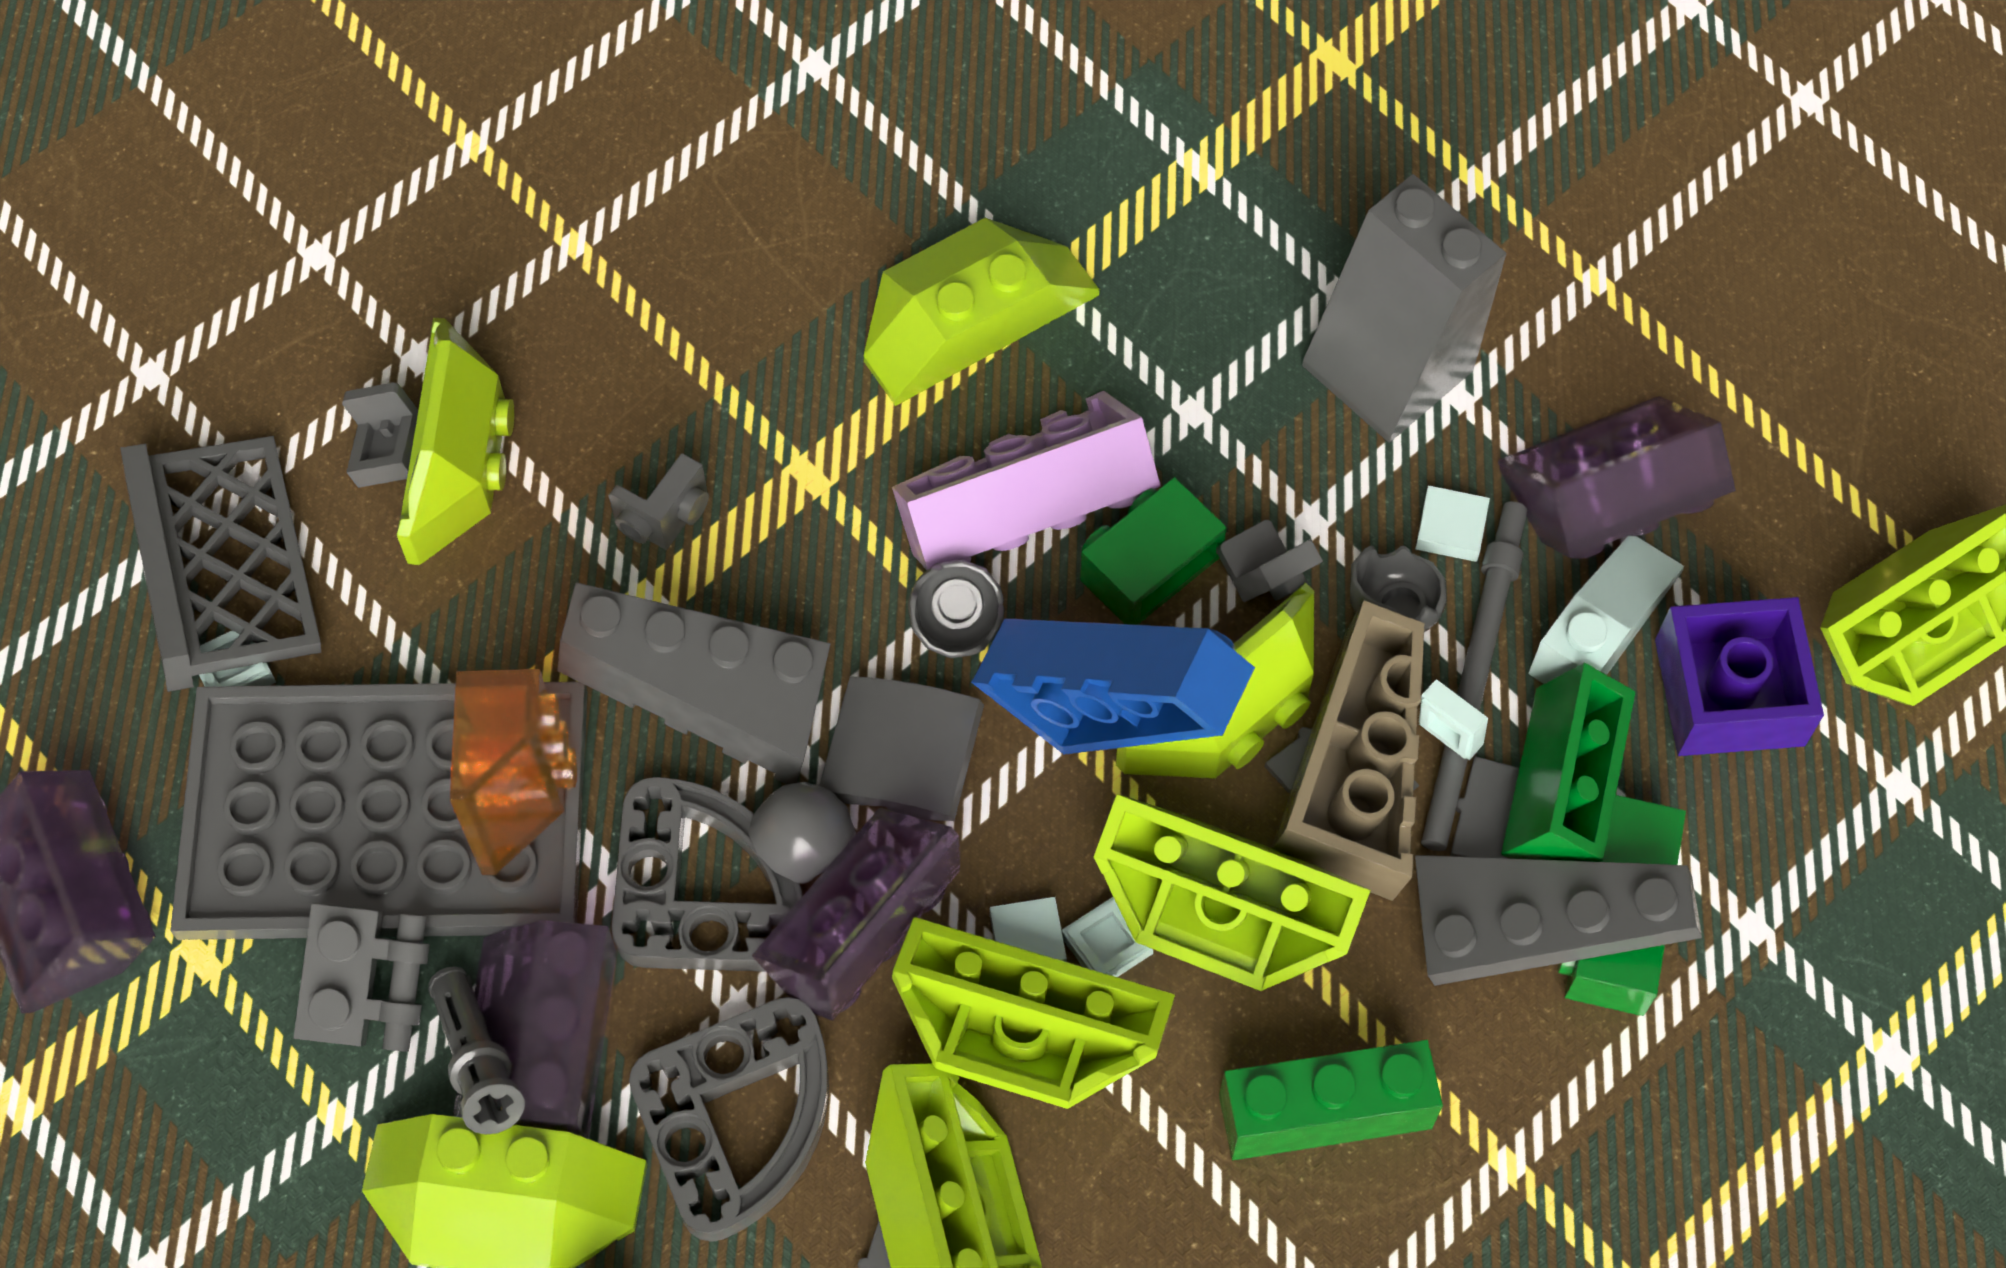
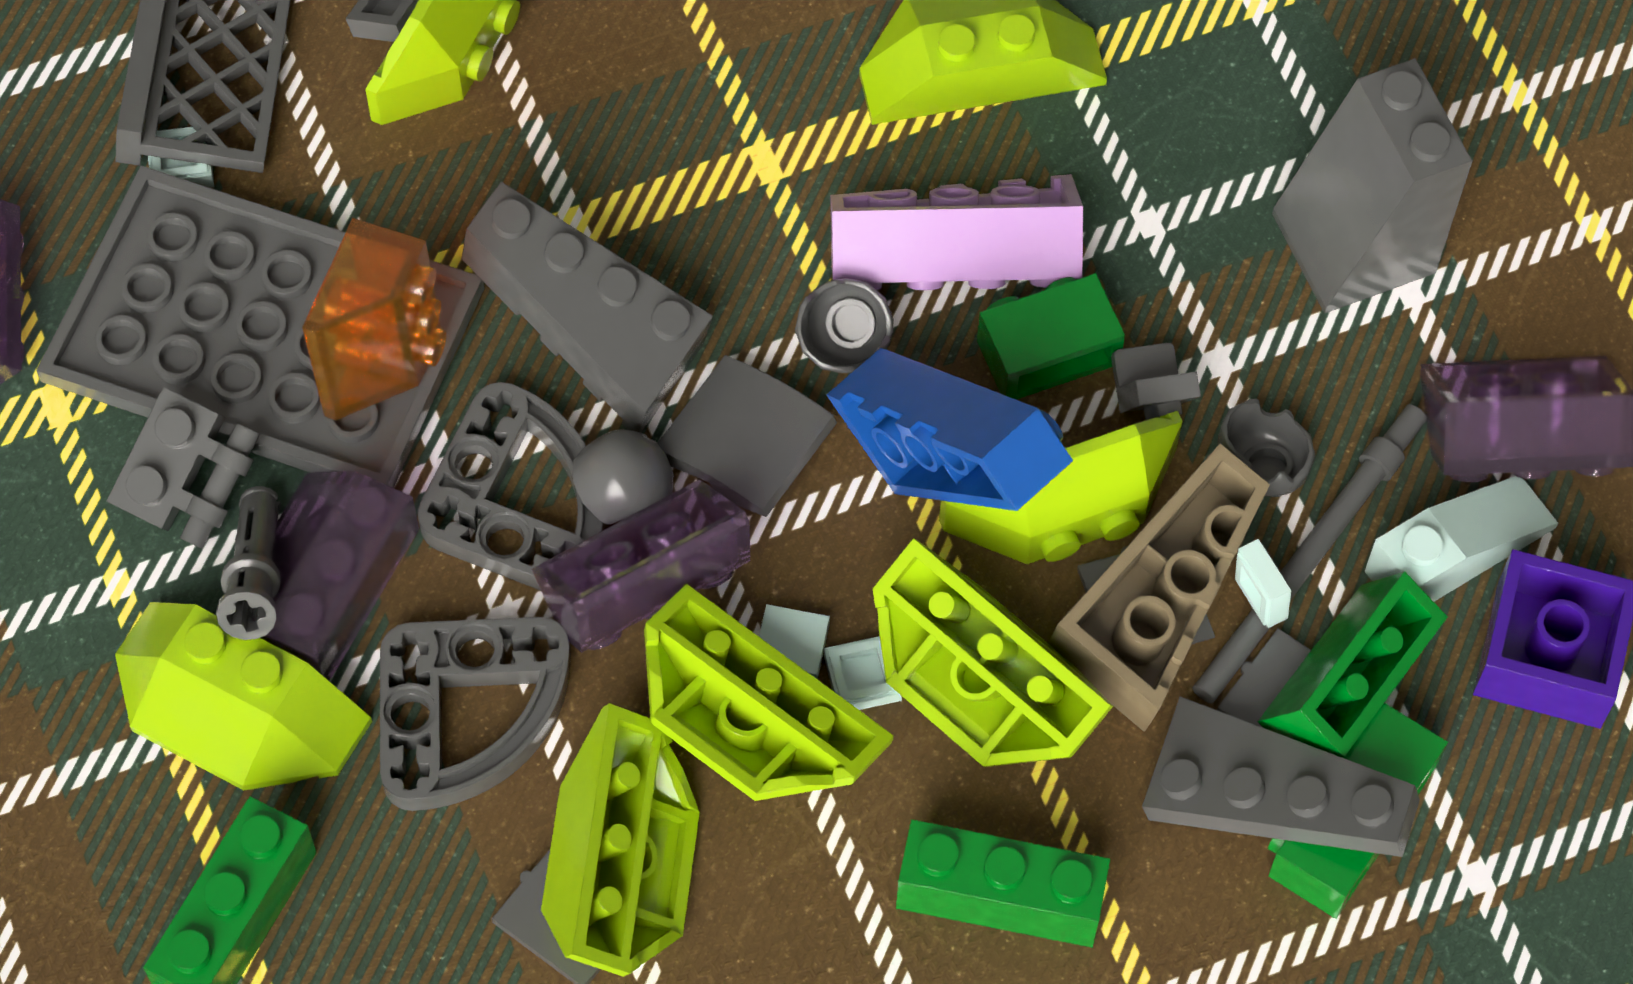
camera: 20 degrees right, 0 degrees up
(672, 505) = (620, 148): dark grey bracket -> none
(1452, 523) = (1350, 407): light aqua tile -> none

